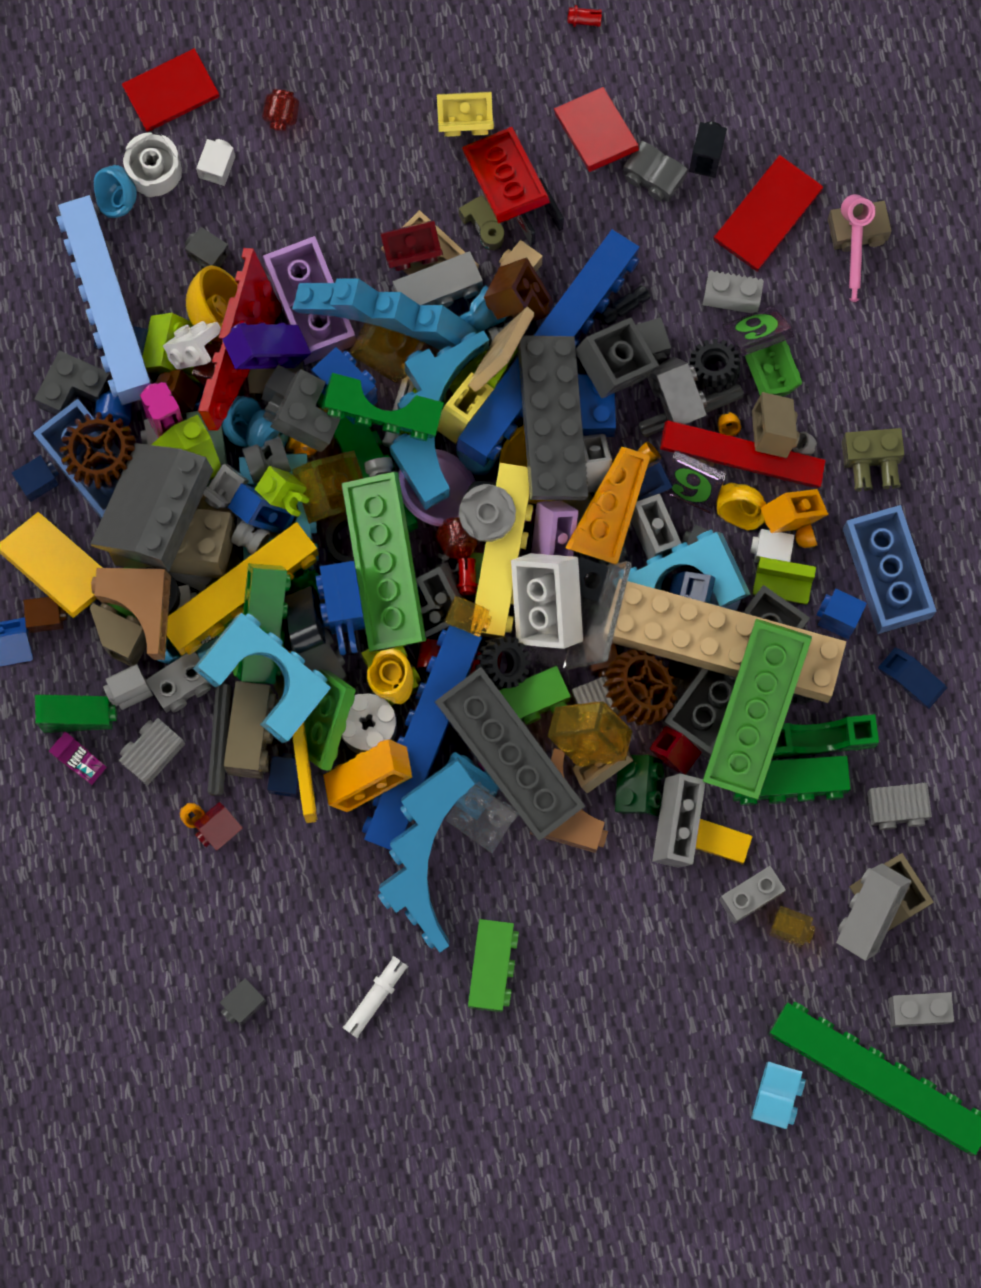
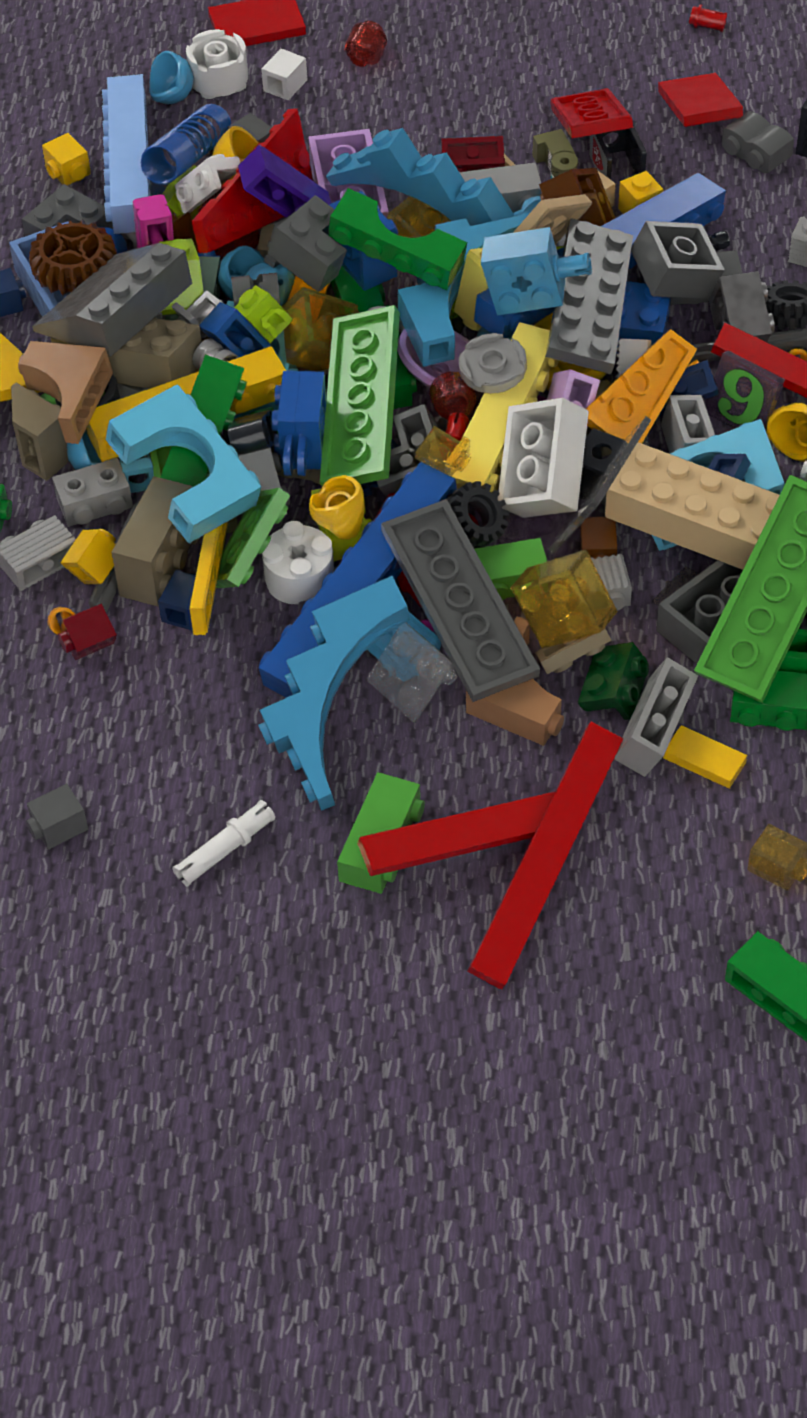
camera: 15 degrees right, 25 degrees down
(47, 307) = (66, 159): none -> yellow brick
(127, 687) = (30, 480): light grey brick -> none
(153, 312) = (181, 148): none -> blue piece
(200, 752) = (91, 556): none -> yellow brick
(367, 775) = (281, 599): light orange brick -> none
(465, 113) = (560, 70): light yellow bracket -> none
(503, 428) = (527, 271): none -> dark azure brick
(559, 956) = (453, 835): none -> red tile
(565, 262) = (637, 190): none -> yellow brick
(620, 959) = (545, 856): none -> red tile
(634, 694) = (636, 566): reddish brown gear -> none
(675, 750) = (667, 639): dark red brick -> none
(752, 894) = (733, 812): light grey brick -> none
(777, 1095) = (723, 1045): medium azure brick -> none

